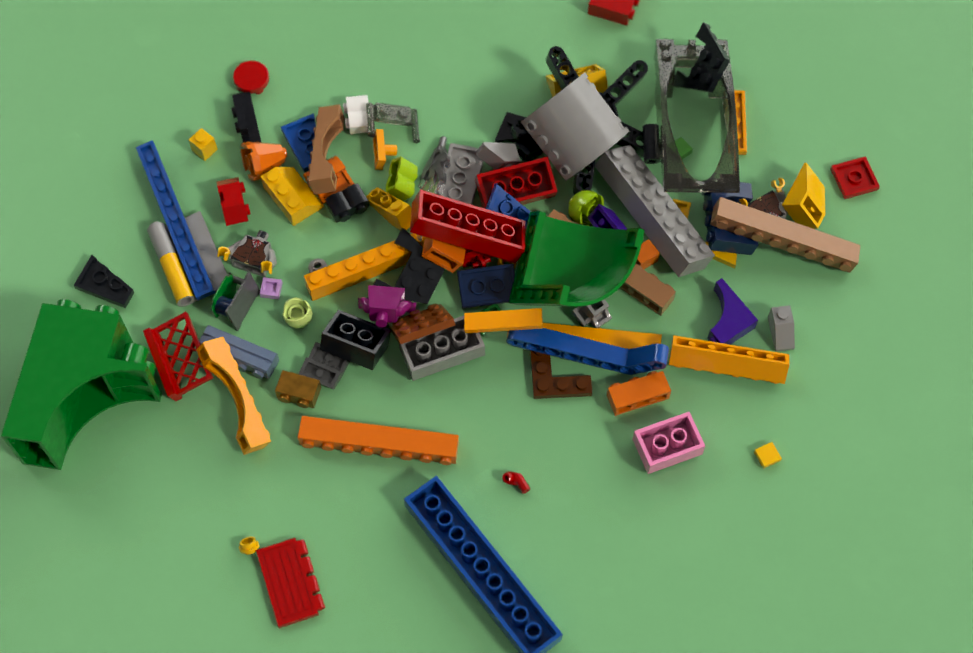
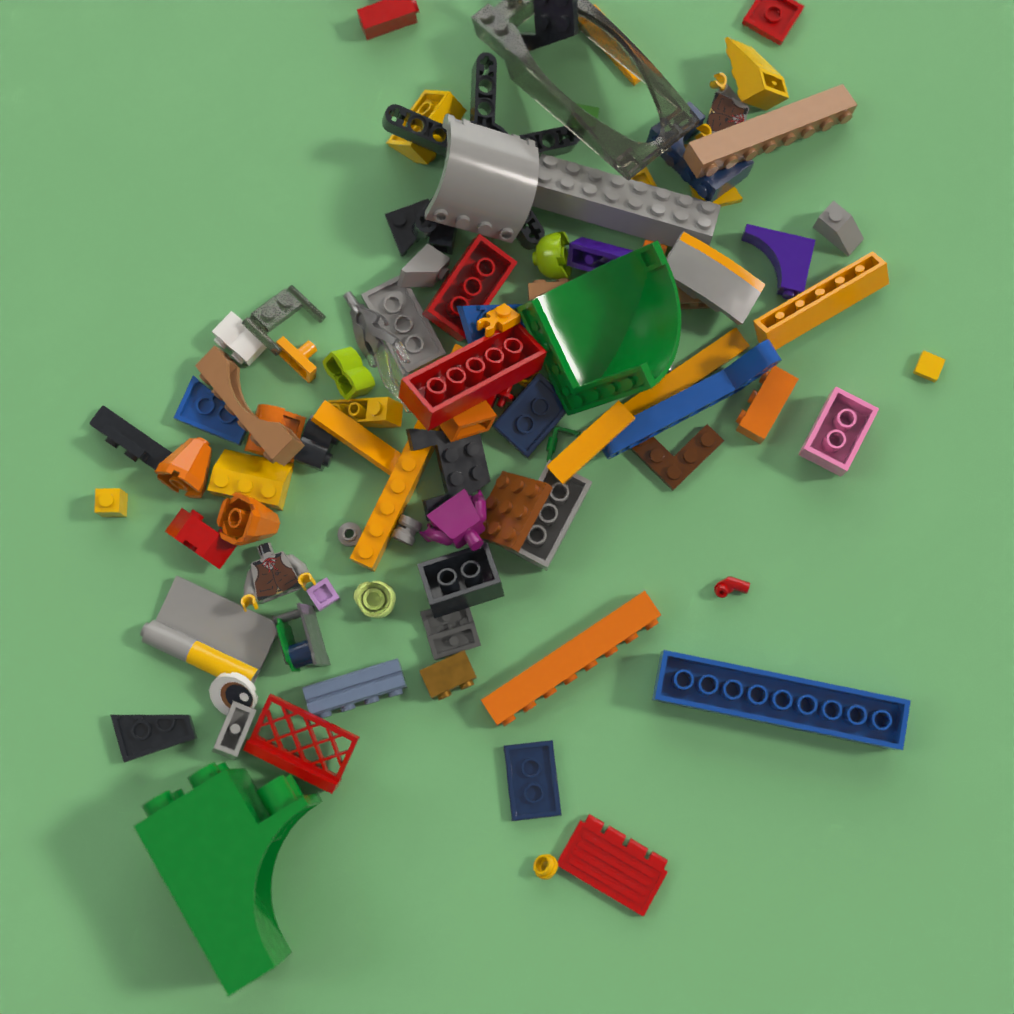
camera: 40 degrees left, 15 degrees up
(147, 316) = (234, 730): none -> light grey slope
(167, 298) = (232, 688): none -> white tile
(175, 221) = (160, 606): blue plate -> none
(218, 359) = (444, 756): light orange arch -> none
(251, 77) = (89, 387): red tile -> none
(266, 209) = (246, 520): none -> orange cone
(289, 492) = (532, 780): none -> dark blue tile
(352, 290) = (406, 530): none -> light grey wheel
(371, 213) = (356, 437): none -> light orange tile
(515, 211) = (499, 318): none -> light orange plate
(651, 143) = (564, 136): black piece -> none
(668, 289) = (713, 278): none -> light grey slope

